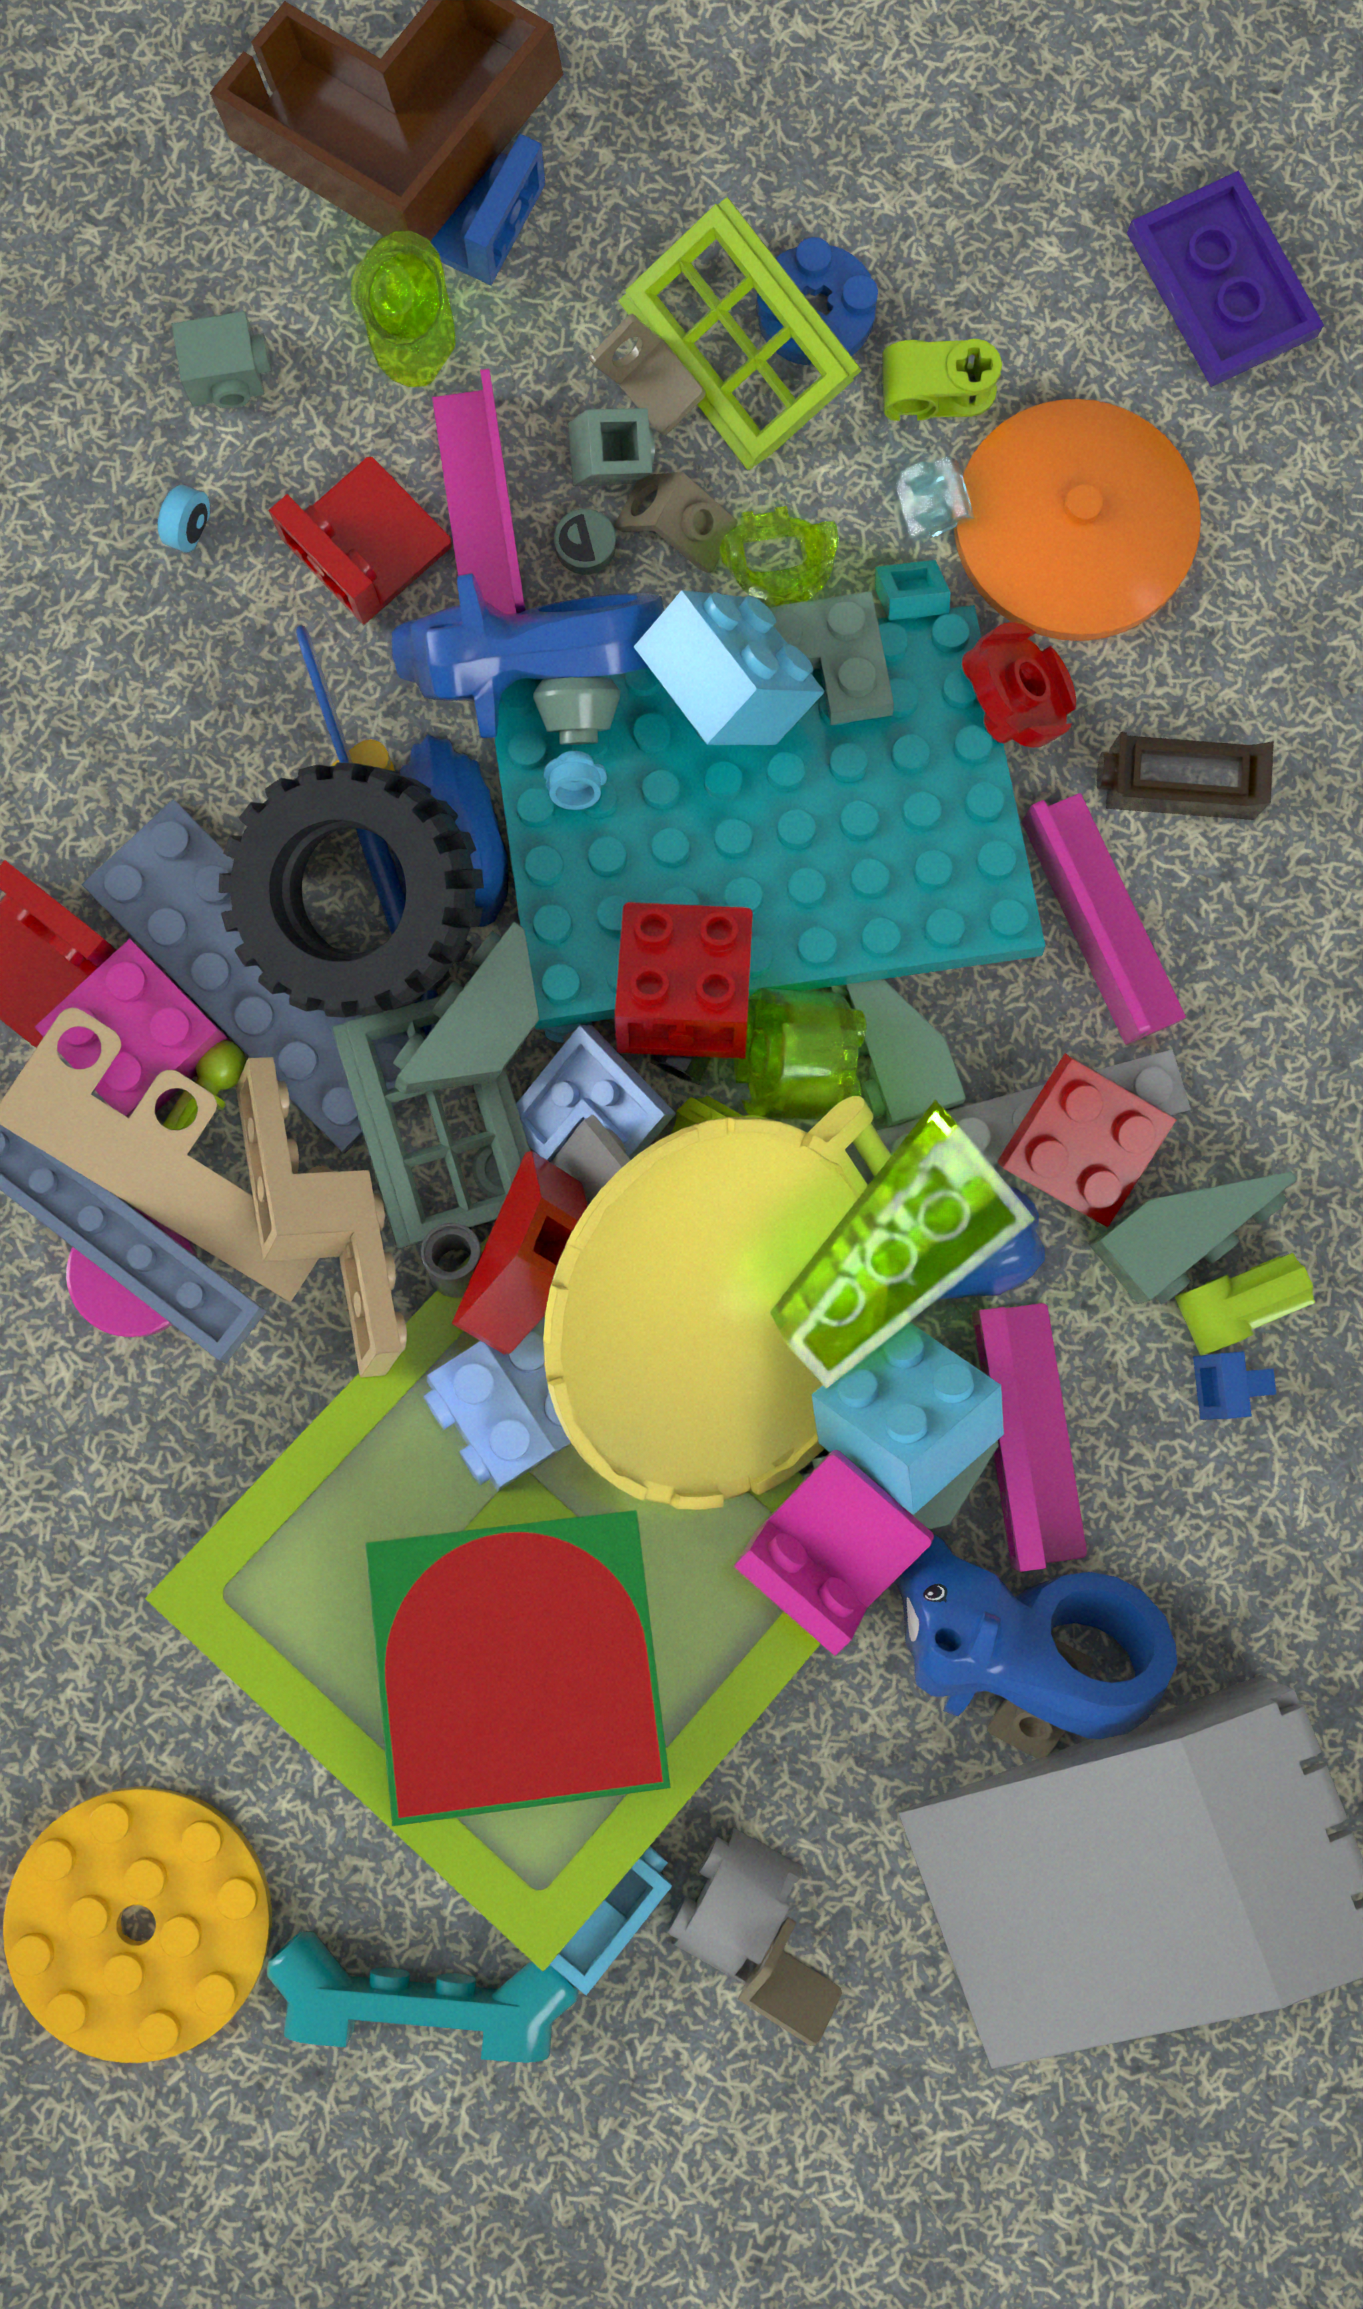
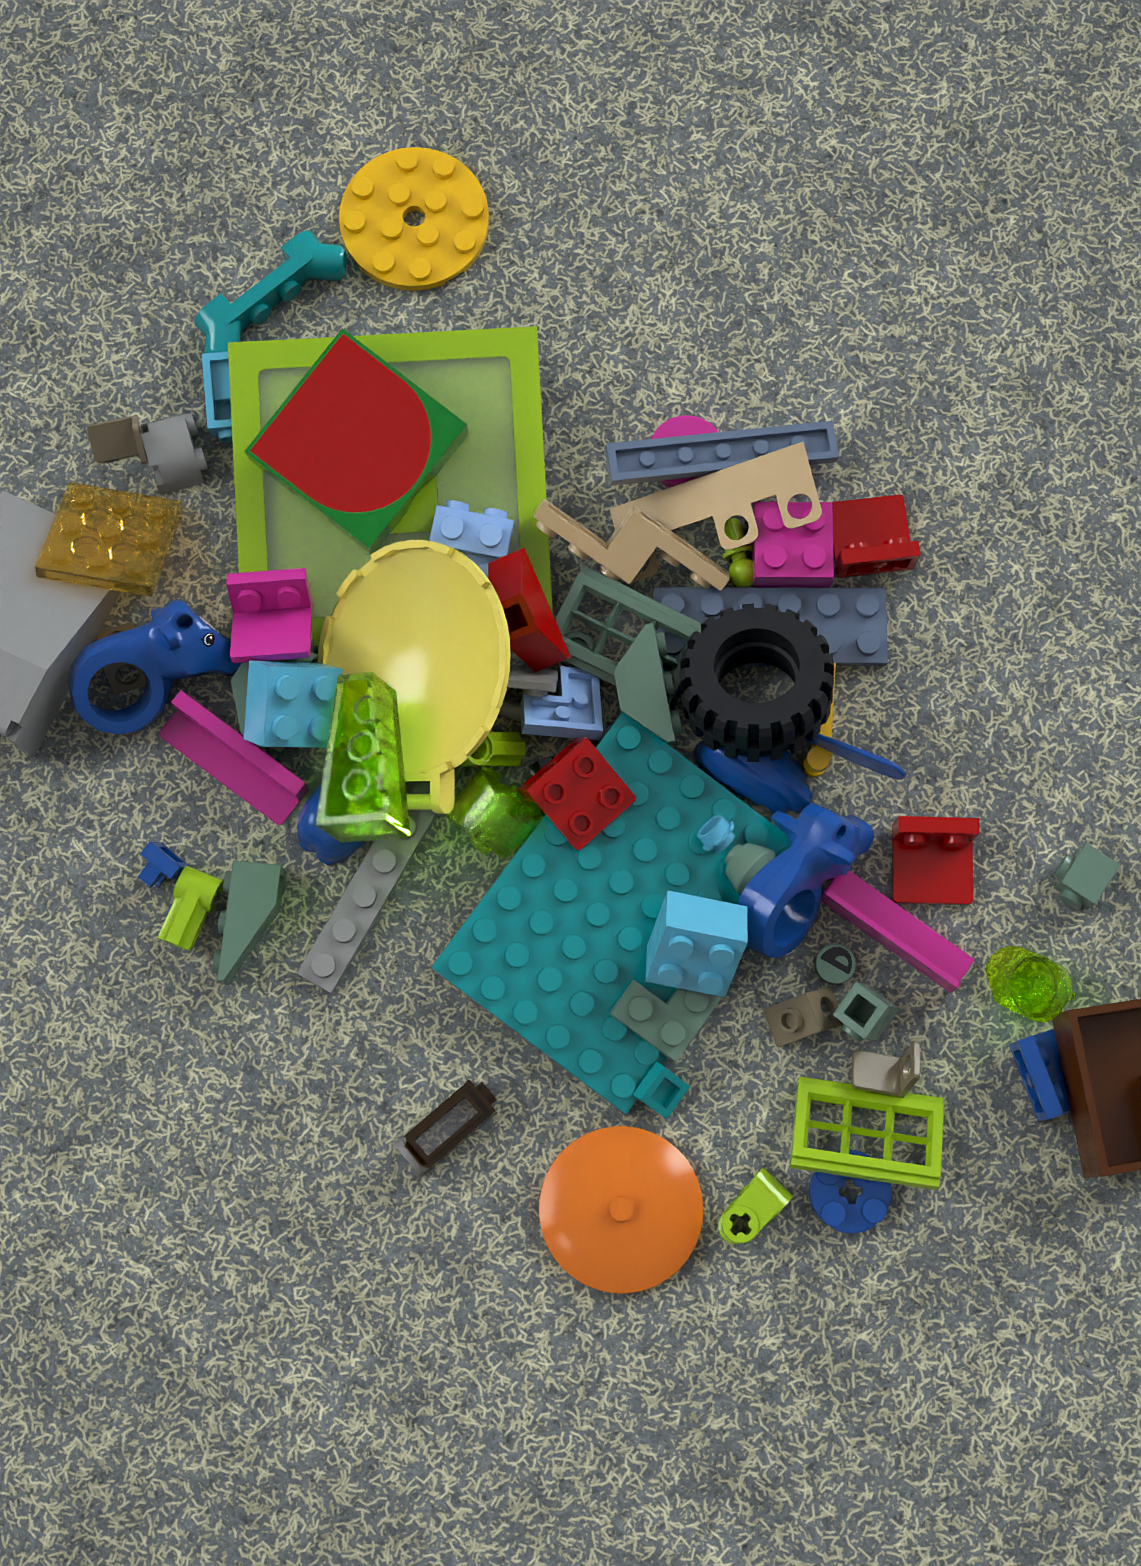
camera: 140 degrees right, 5 degrees down
(183, 517) = (1021, 788): medium azure tile -> none
(439, 1242) = (566, 576): dark grey beam -> none
(789, 585) = (722, 1029): clear neon green helmet -> none
(907, 1056) = (449, 866): sand green slope -> none
(926, 1860) = (109, 539): none -> clear yellow plate
(933, 498) = (696, 1146): clear light blue tile -> none
(1018, 702) = (572, 1072): red plate -> none
(1086, 1140) = (329, 907): plate -> none
(1102, 918) = (421, 1023): dark pink panel -> none
(1224, 278) = (670, 1408): dark purple plate -> none

